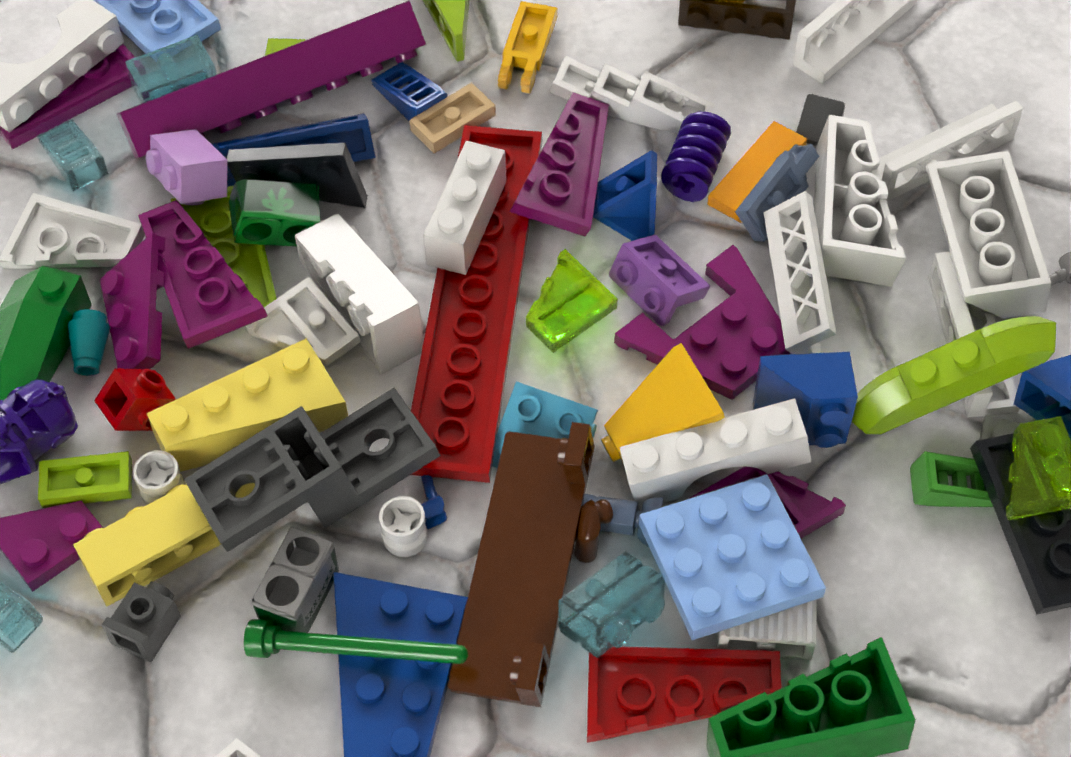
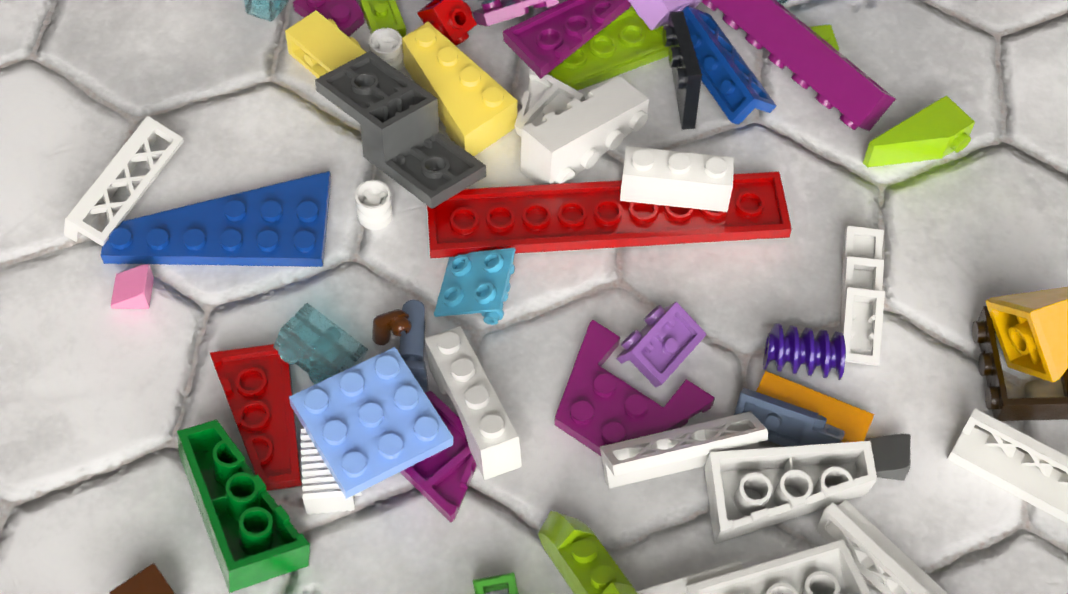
camera: 75 degrees right, 0 degrees up
(147, 632) = (271, 69): dark grey brick -> none
(265, 638) = (268, 142): green piece -> none
(272, 211) = (640, 58): piece -> none
(312, 592) = (299, 160): light grey piece -> none
(398, 98) = (803, 151): blue slope -> none
(434, 505) = (397, 226): blue hand -> none
(445, 120) = (795, 167): tan plate -> none
(523, 566) = (348, 284): reddish brown bracket -> none
(527, 43) = (893, 204): yellow hinge -> none
(567, 170) = (749, 254): magenta wing -> none
(568, 303) = (614, 281): clear neon green wing -> none
(628, 198) = (740, 313): blue slope -> none
(664, 403) = (518, 366): yellow slope -> none
(822, 389) = (546, 469): blue slope -> none

